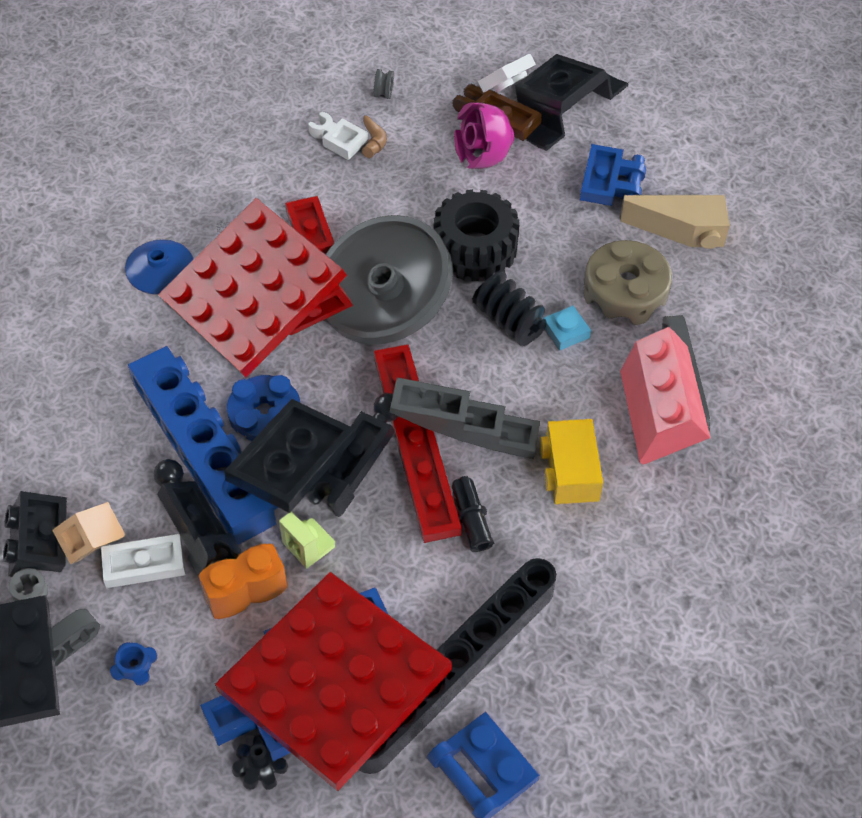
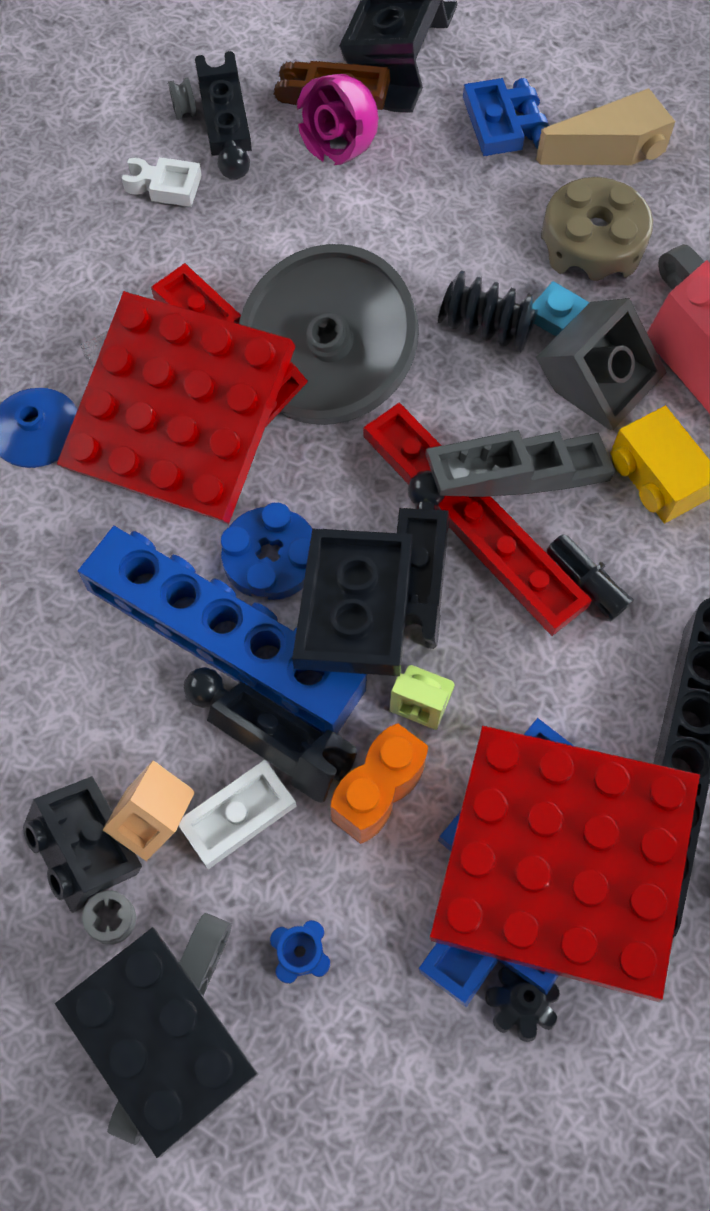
camera: 25 degrees left, 10 degrees up
(378, 138) = (208, 161): medium nougat animal -> none
(407, 105) = (225, 115): none -> black plate
(478, 214) = (410, 213): black tyre -> none
(507, 74) = (325, 35): white plate -> none
(573, 375) = (603, 361): none -> dark grey slope

